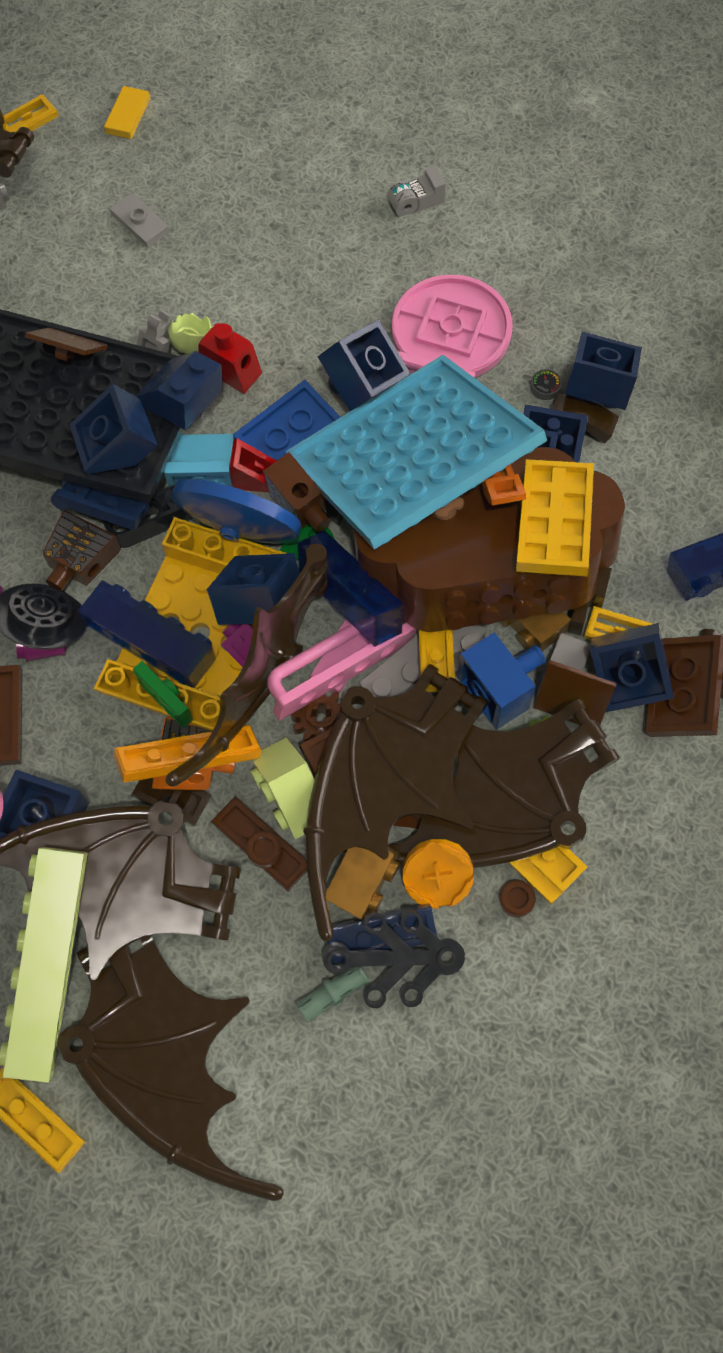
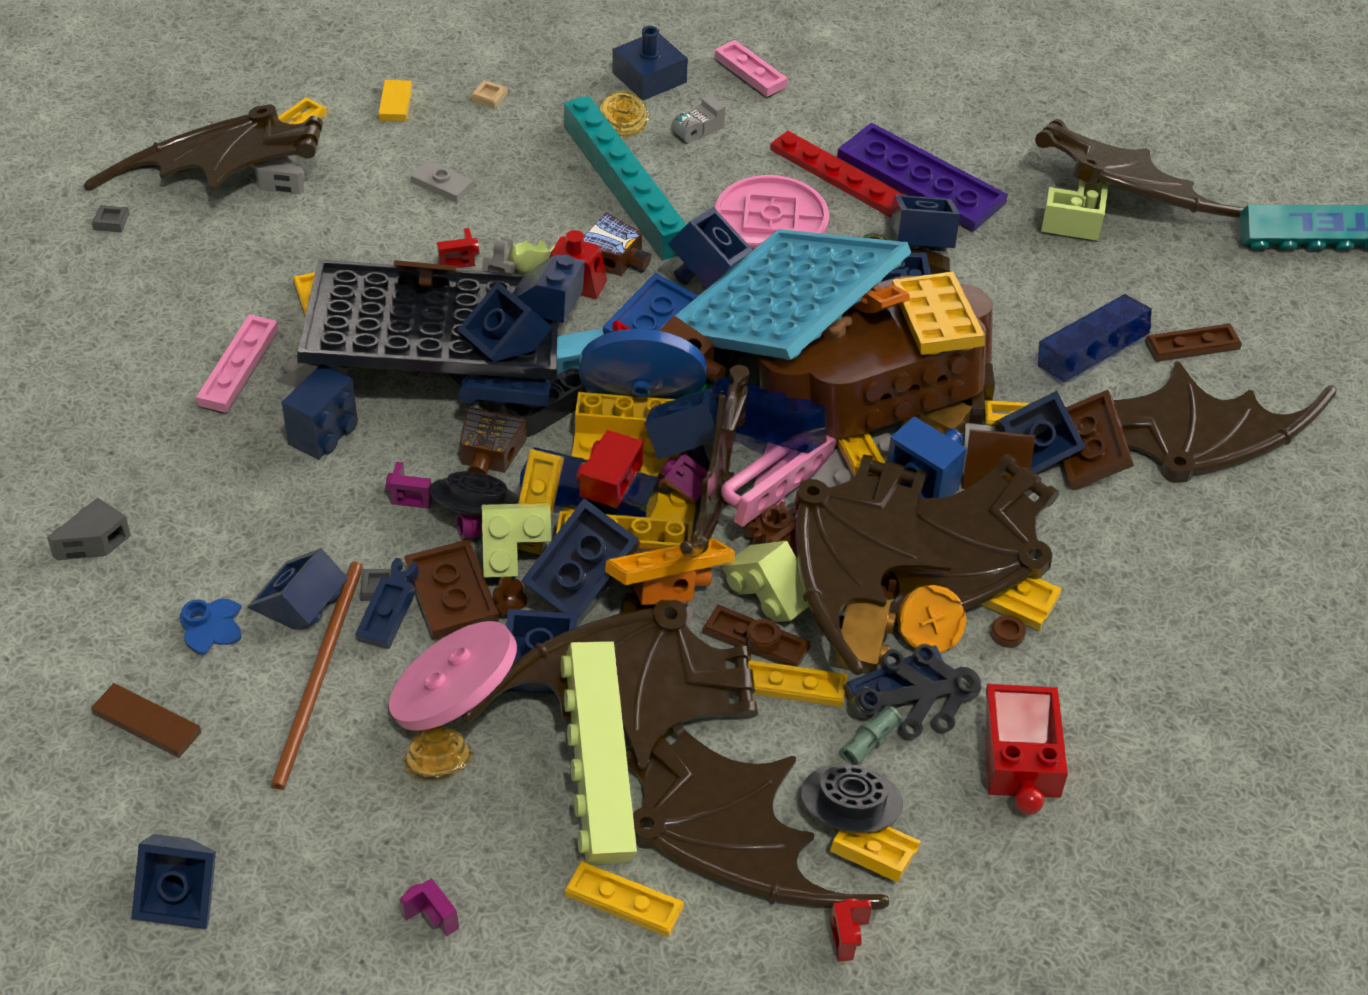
camera: 20 degrees left, 20 degrees down
(36, 741) = (509, 595): none -> reddish brown plant
(46, 673) = (504, 527): none -> yellowish green brick
(88, 642) = (540, 486): none -> yellow tile
(106, 718) = (573, 565): none -> dark blue brick
(124, 314) = (458, 252): none -> red bracket
(161, 630) = (610, 468): none -> red brick
(163, 693) = (633, 517): green plate -> none
(221, 120) = (489, 94): none -> tan tile
(224, 1226) = (845, 926): none -> red bracket
(277, 335) = (619, 244): none -> torso
(277, 907) = (798, 683): none -> yellow tile
(286, 1065) = (851, 798): none -> black wheel
(290, 1129) = (881, 851): none -> yellow plate
(316, 246) = (623, 174): none -> teal brick
(343, 170) = (625, 112): none -> clear yellow piece
(389, 113) = (649, 64): none -> dark blue brick
(485, 1043) = (1025, 744): none -> red slope
(494, 134) = (751, 68): none -> bright pink plate
(540, 283) = (835, 172): none -> red plate
(627, 305) = (921, 174): none -> dark purple plate

